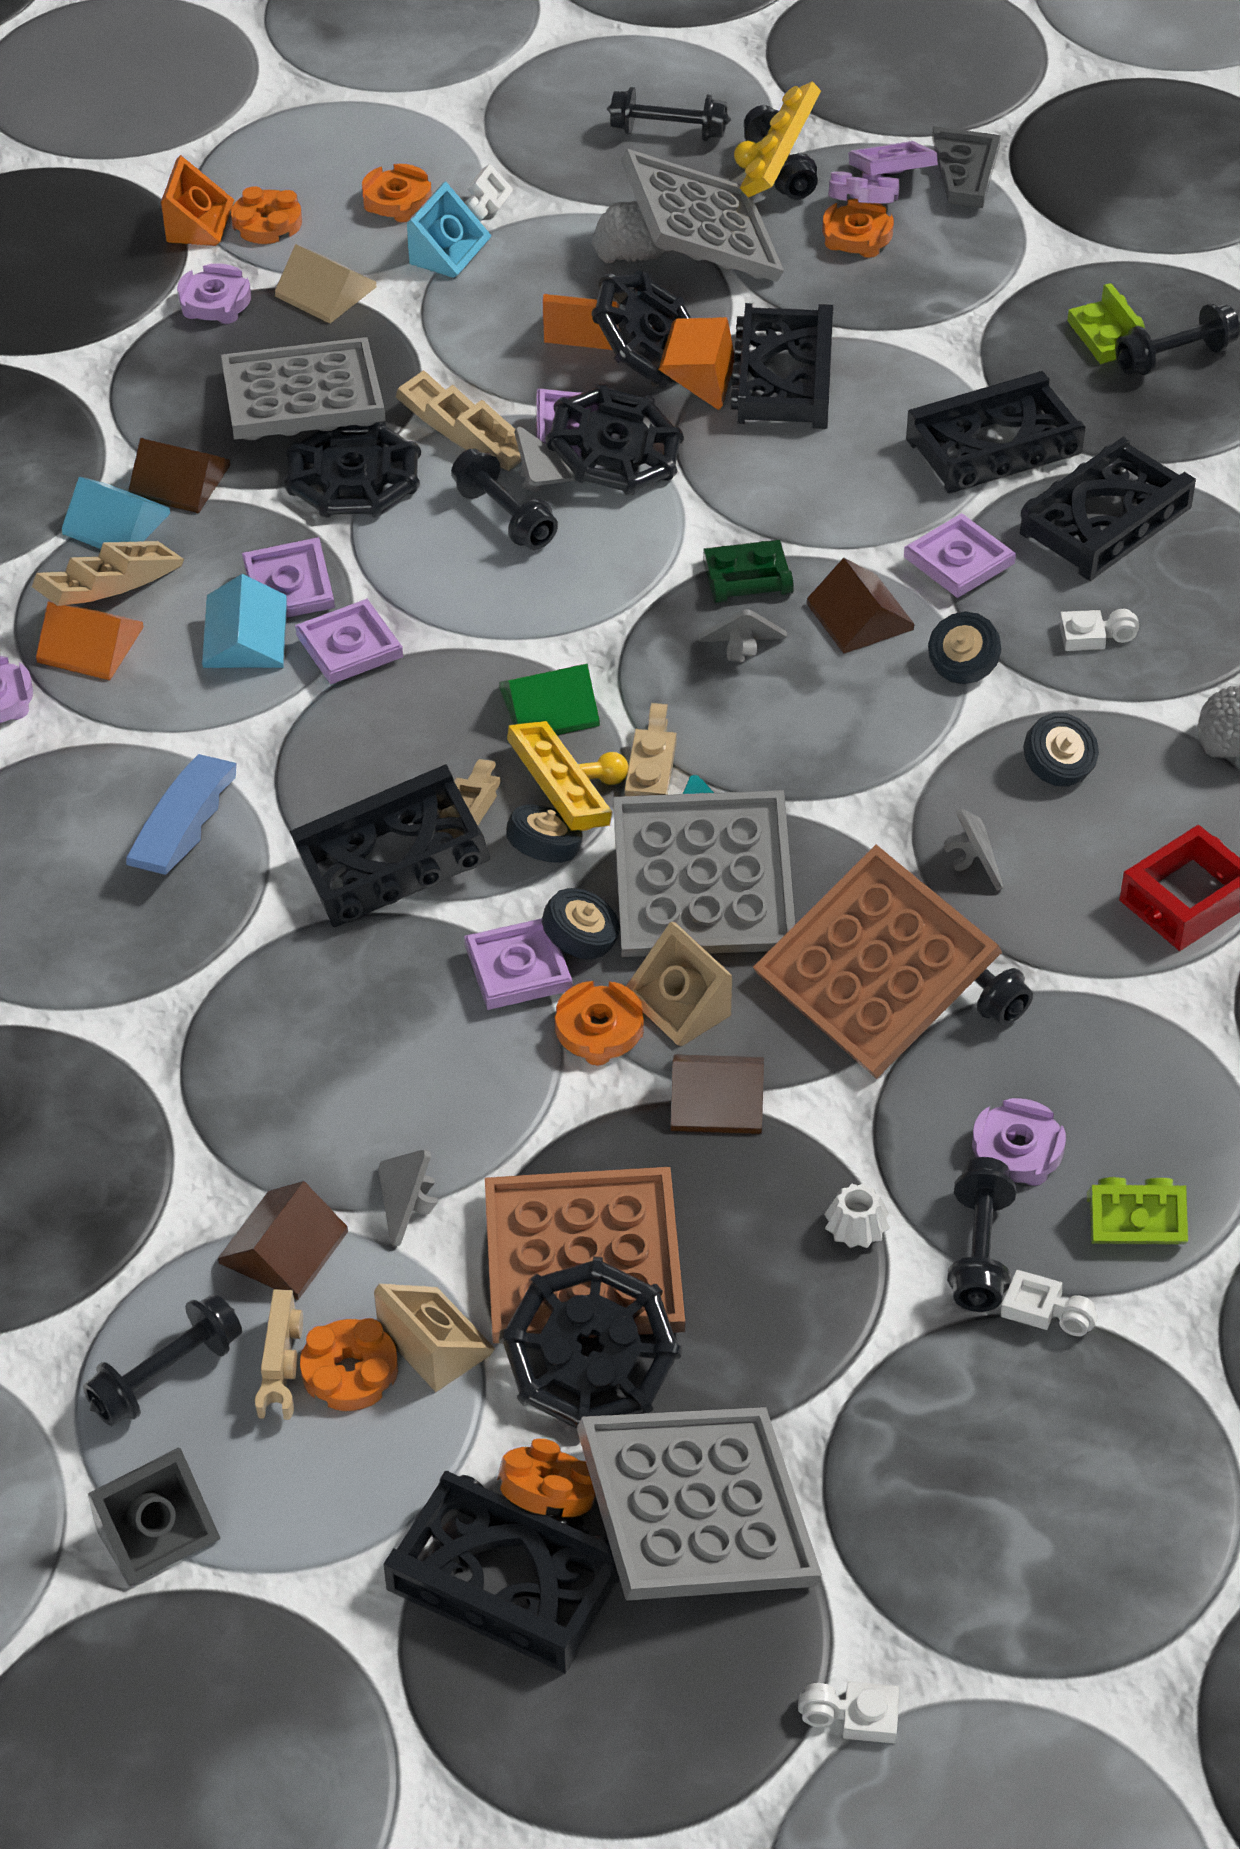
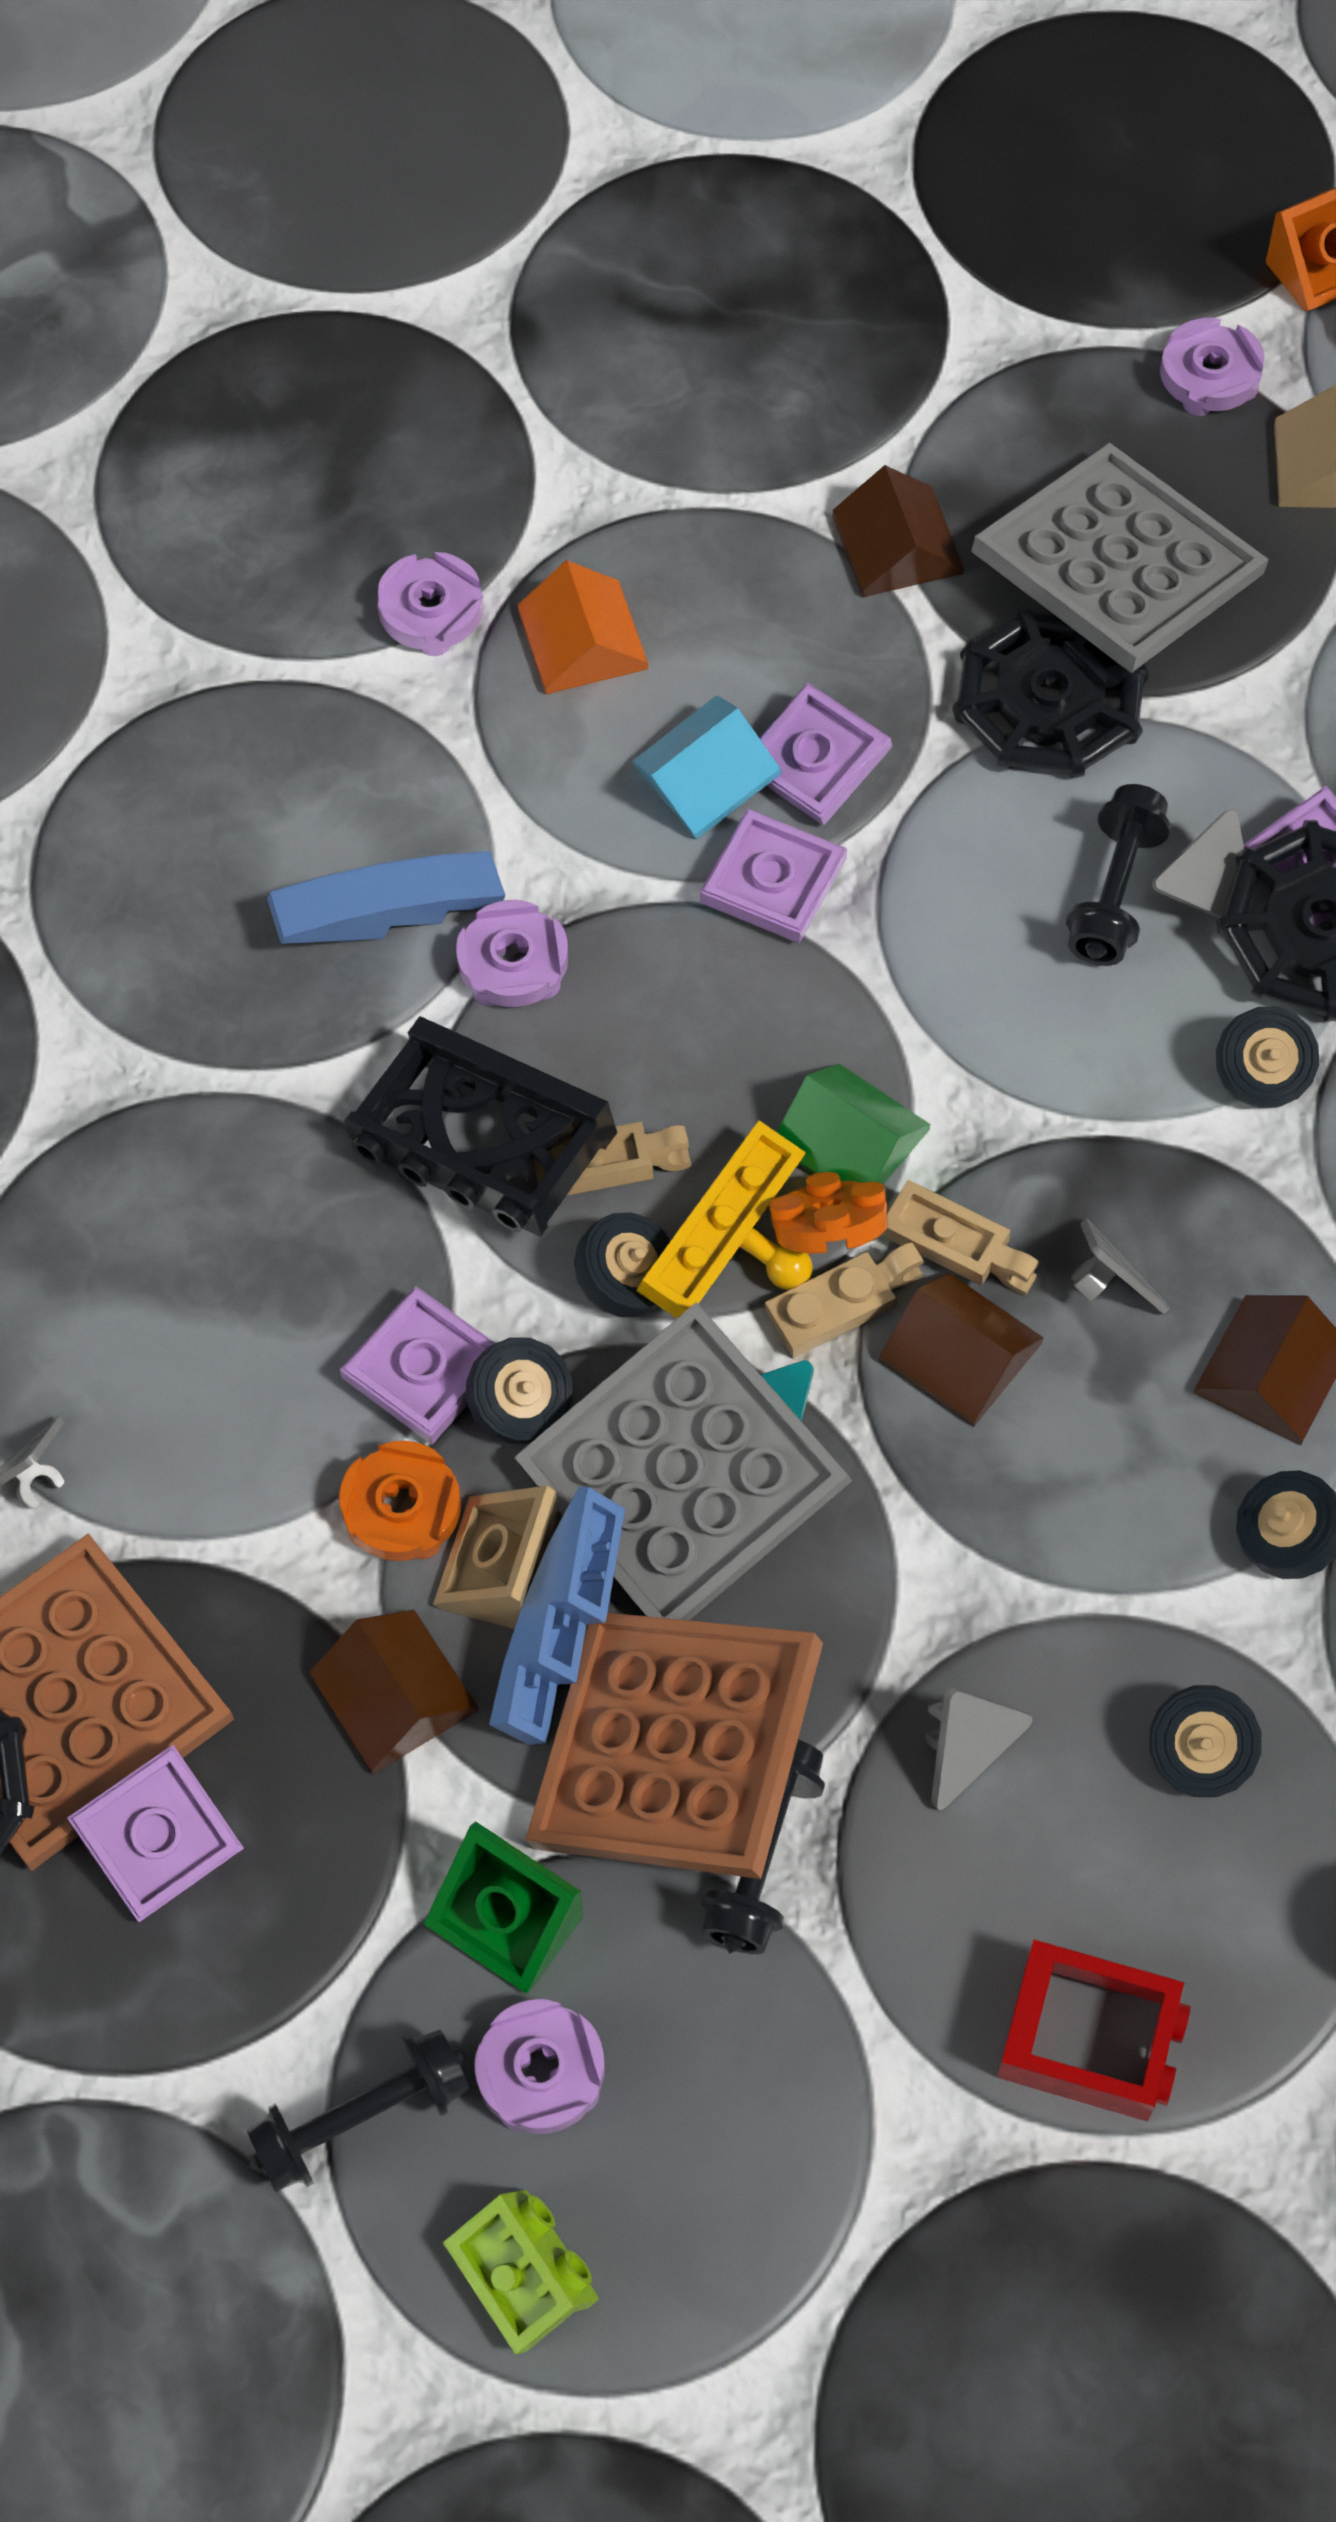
camera: 55 degrees right, 15 degrees up
(110, 514) = (780, 523): medium azure slope -> none
(115, 571) = (683, 587): tan slope -> none
(284, 798) = (517, 982): none -> lavender plate
(461, 419) = (1223, 738): tan slope -> none
(601, 725) = (828, 1213): none -> orange plate
(665, 685) = (958, 1238): none -> tan plate
(676, 505) = (1267, 1057): none -> black wheel
(717, 1247) = (155, 1833): none -> lavender plate
(732, 728) = (958, 1347): none -> reddish brown slope
(745, 965) = (564, 1597): none -> medium blue slope
(747, 570) = (1246, 1192): dark green plate -> none
(857, 1216) = (302, 1957): white piece -> none
(907, 1098) = (504, 1908): none -> green slope
(1037, 1299) = (308, 2229): white plate -> none

